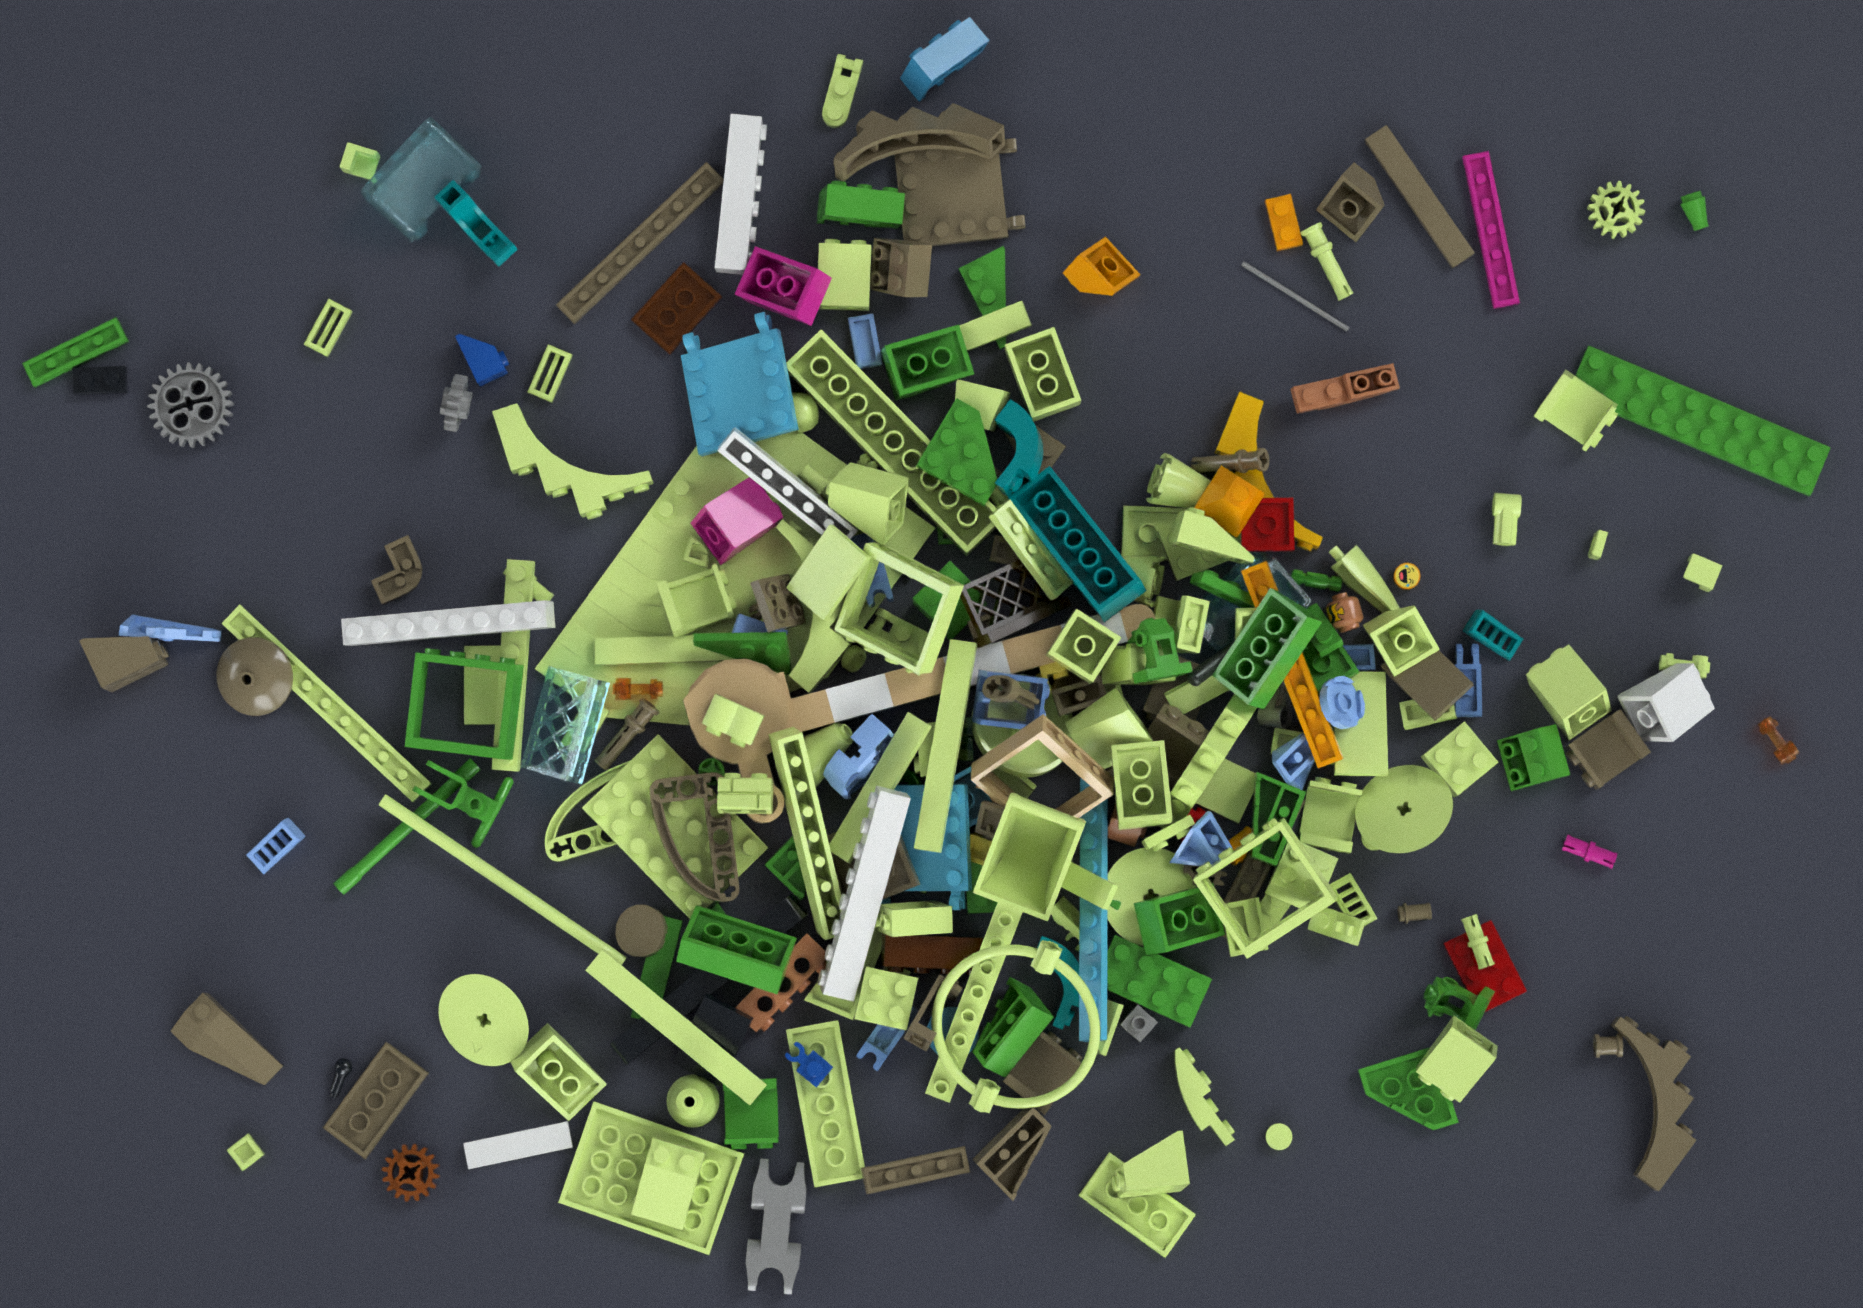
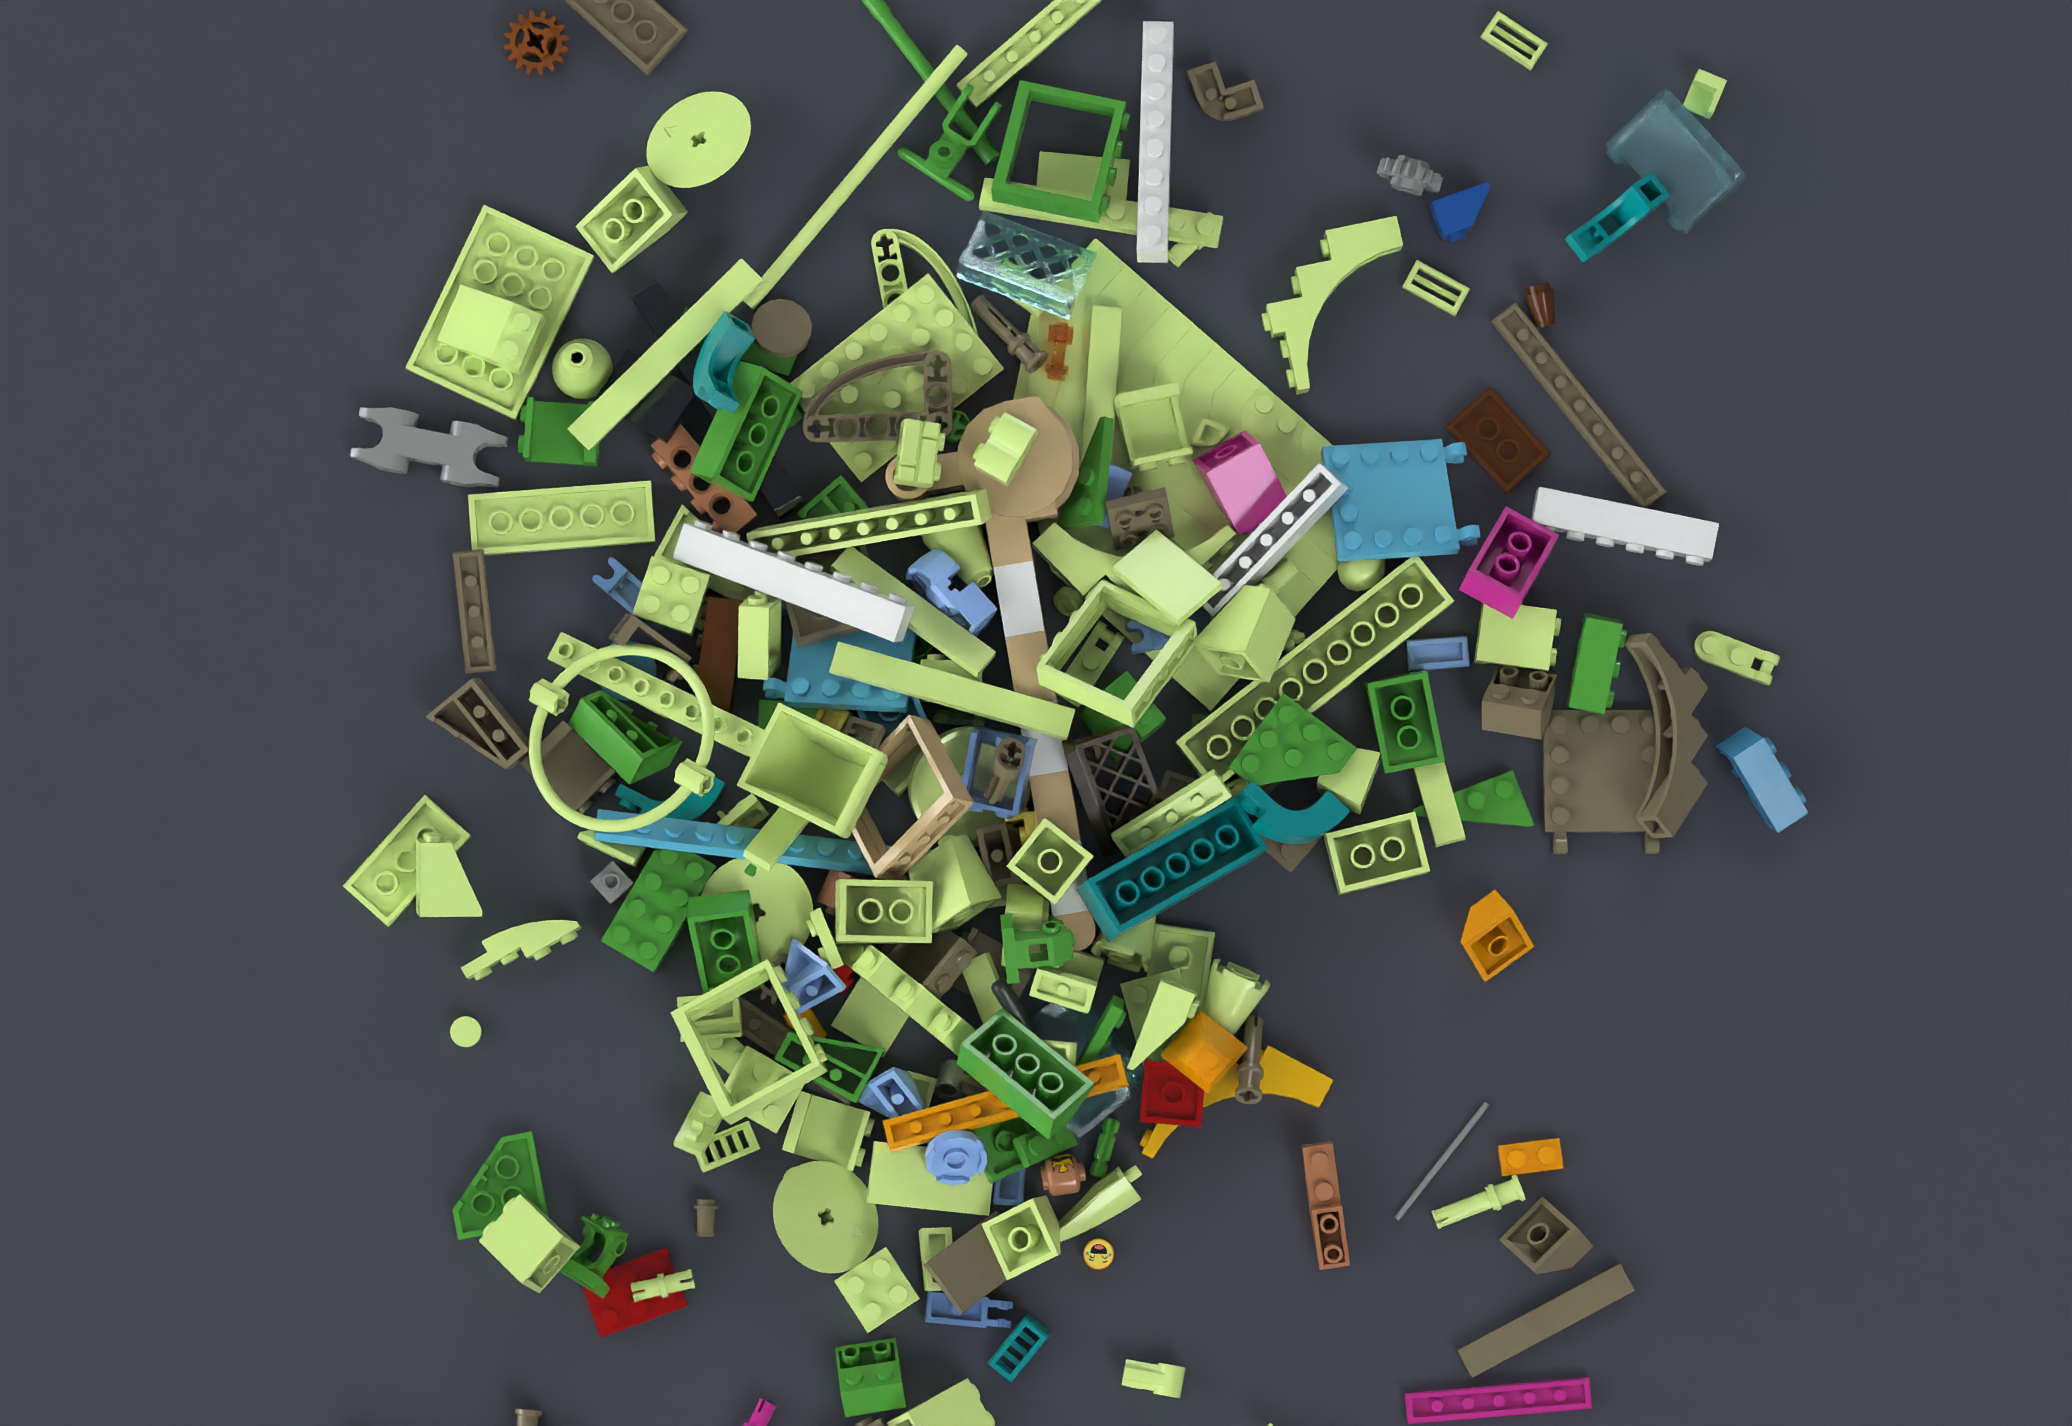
camera: 90 degrees right, 0 degrees up
(518, 1145) = (554, 167): white tile -> none
(555, 282) = (1541, 303): none -> reddish brown cone
(677, 979) = (718, 362): none -> teal arch
(812, 1066) = (604, 505): blue plate -> none

